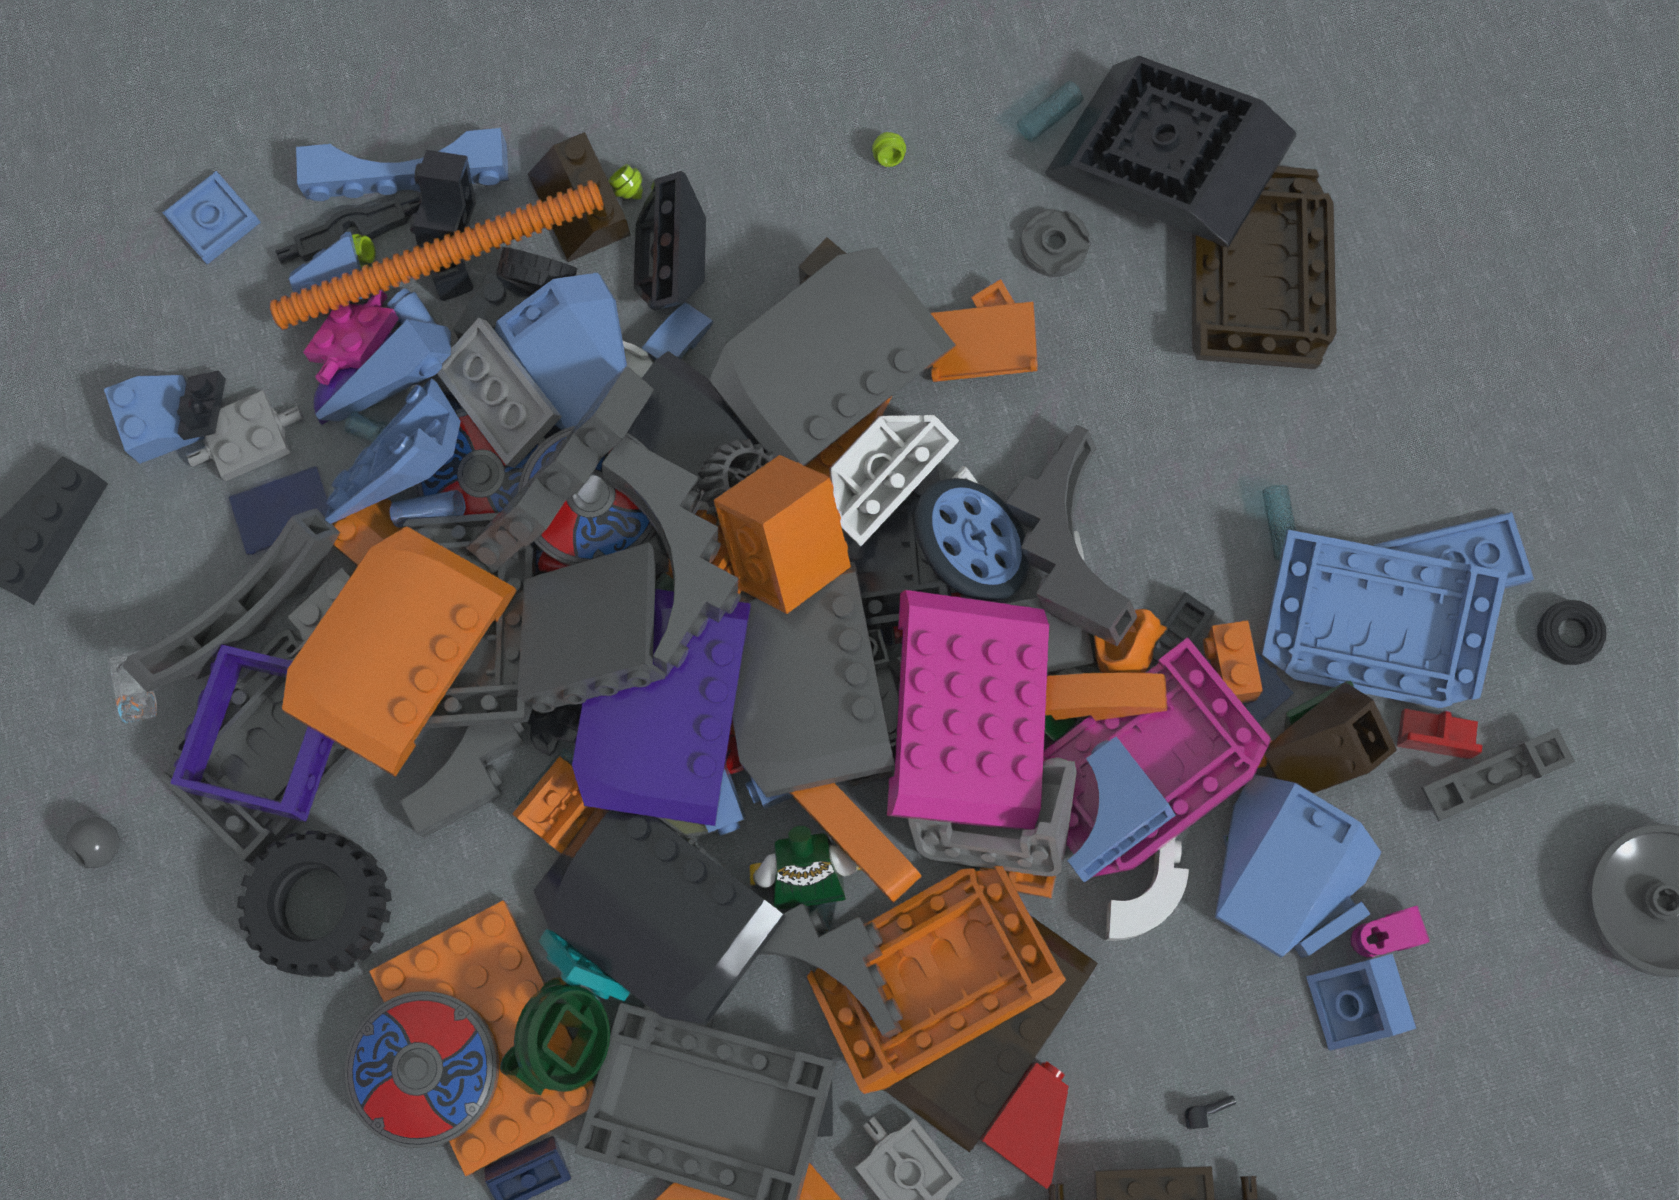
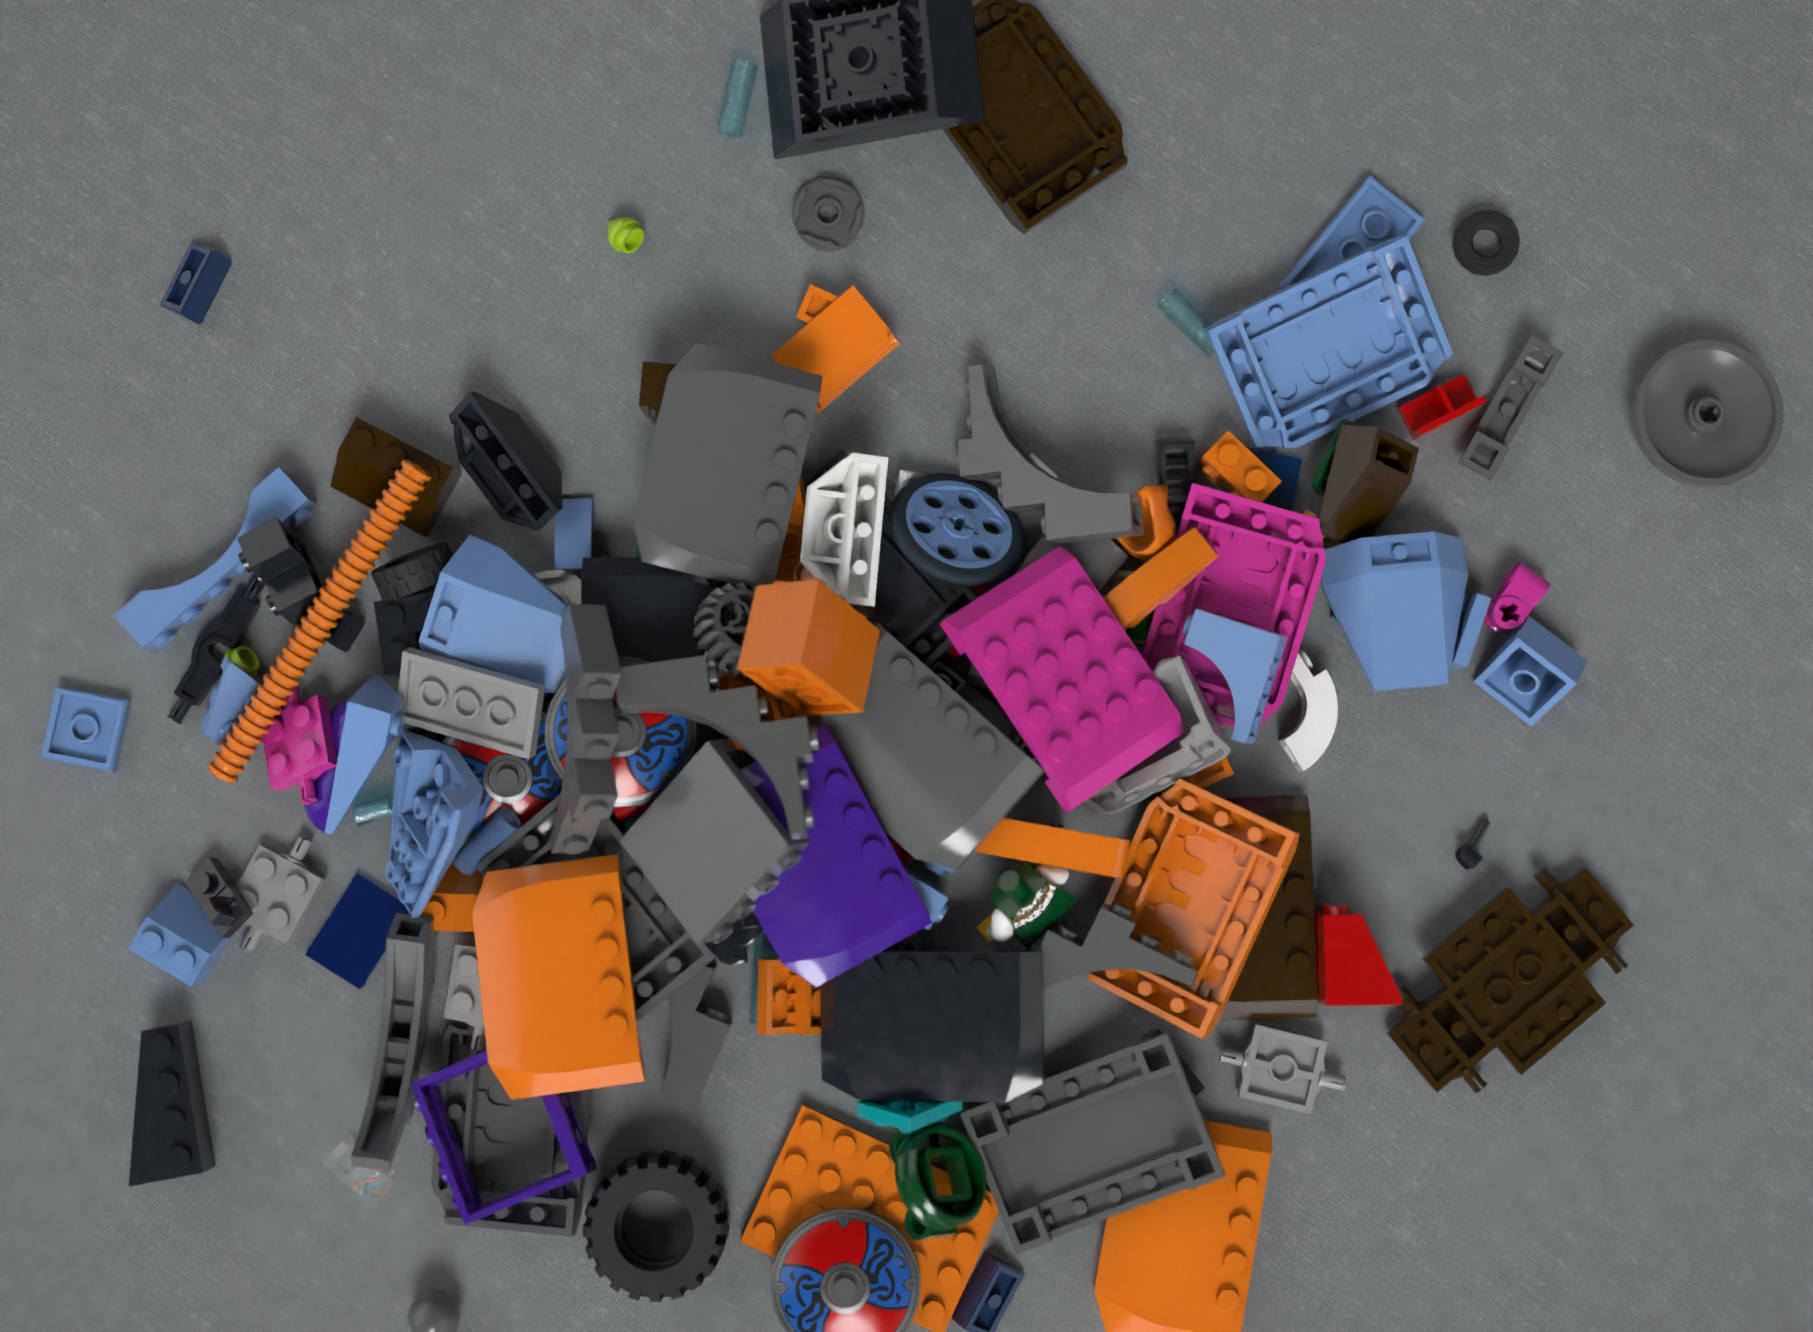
camera: 40 degrees left, 10 degrees up
(409, 306) = (332, 683): medium blue cone -> none
(627, 183) = (423, 432): lime plate -> none

